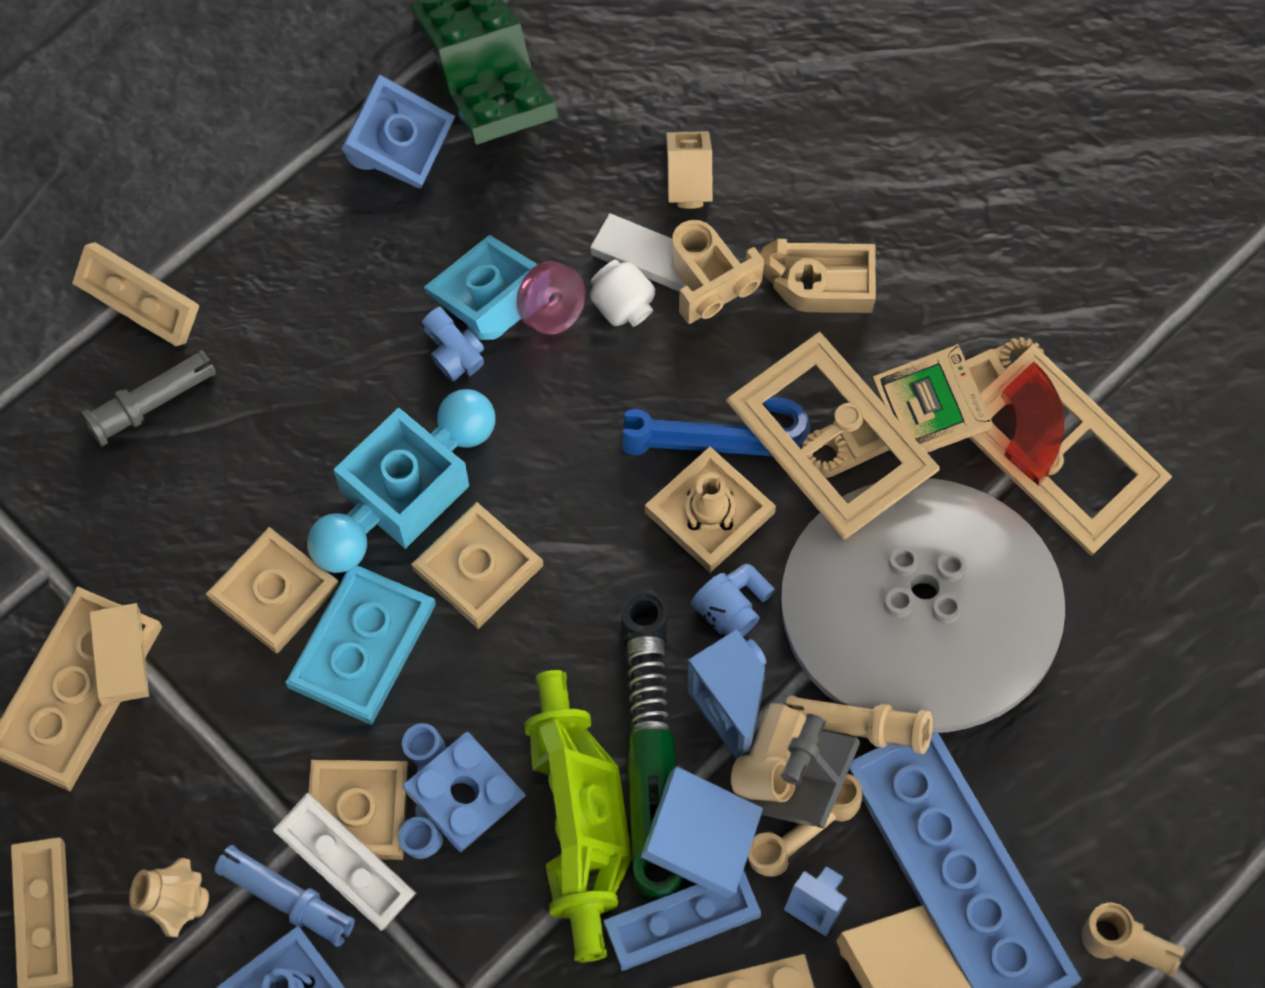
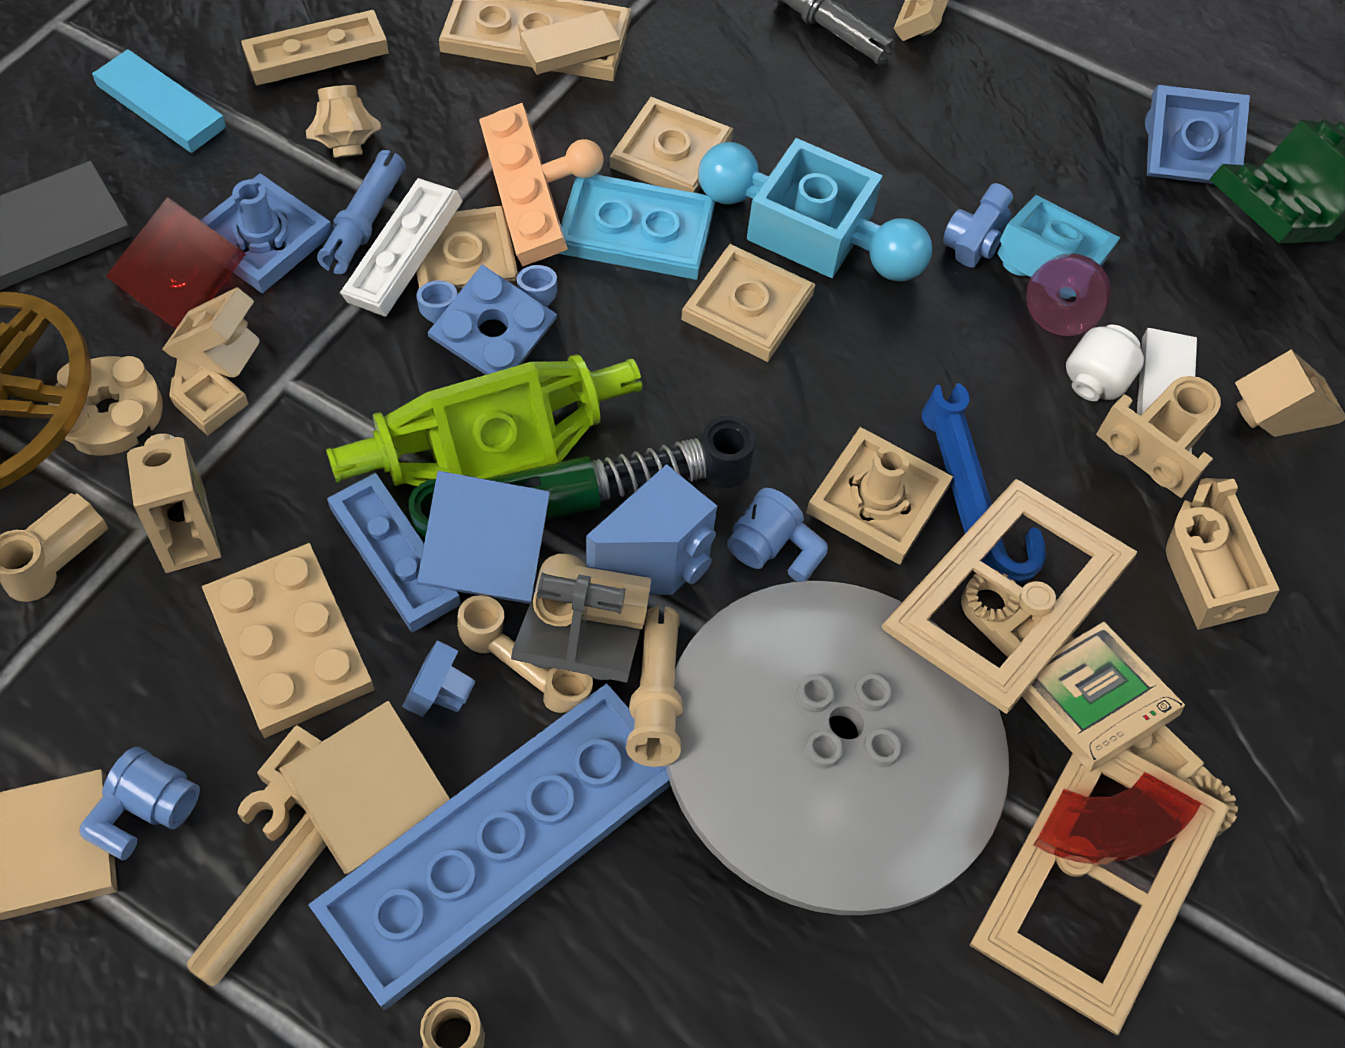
camera: 70 degrees right, 5 degrees down
(290, 732) = (525, 181): none -> light nougat plate

